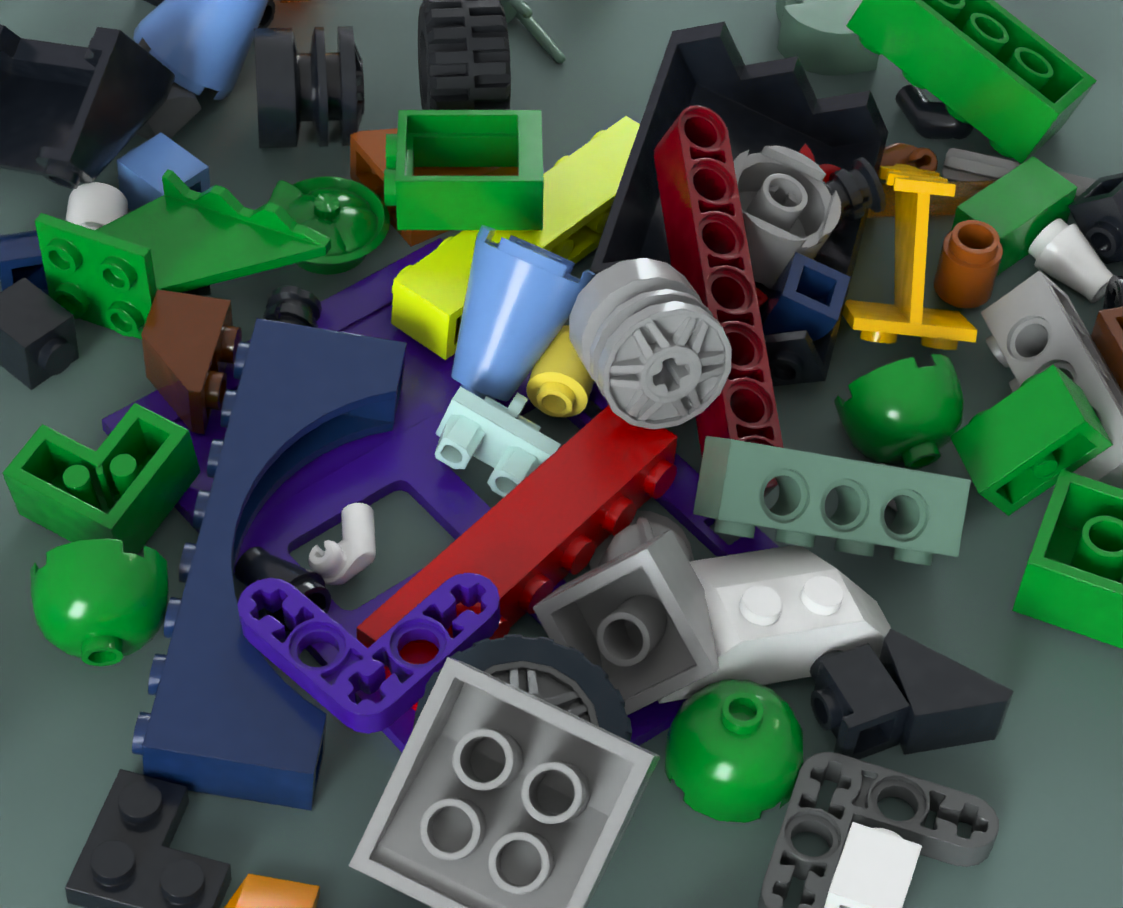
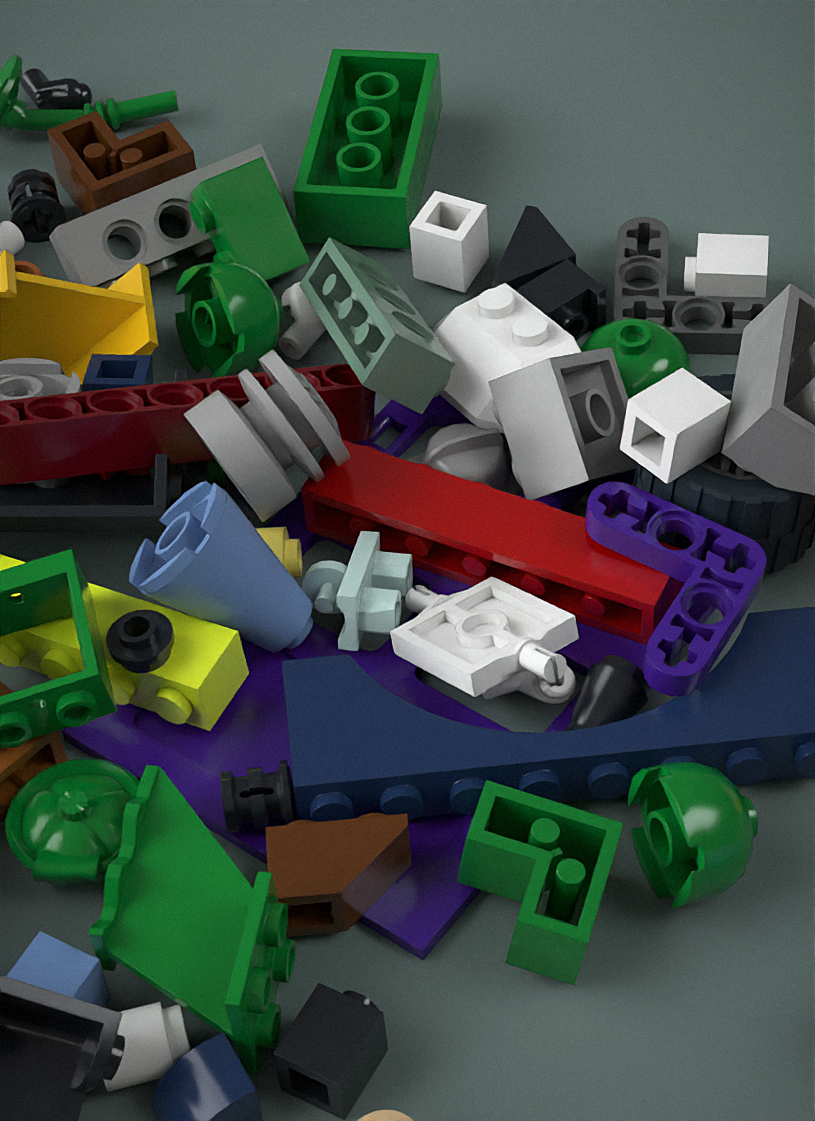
camera: 95 degrees left, 0 degrees up
(386, 501) = (484, 635): none -> white plate
(451, 242) = (140, 640): none -> black plate
(516, 631) = (674, 425): none -> white brick
(978, 616) = (449, 241): none -> white brick

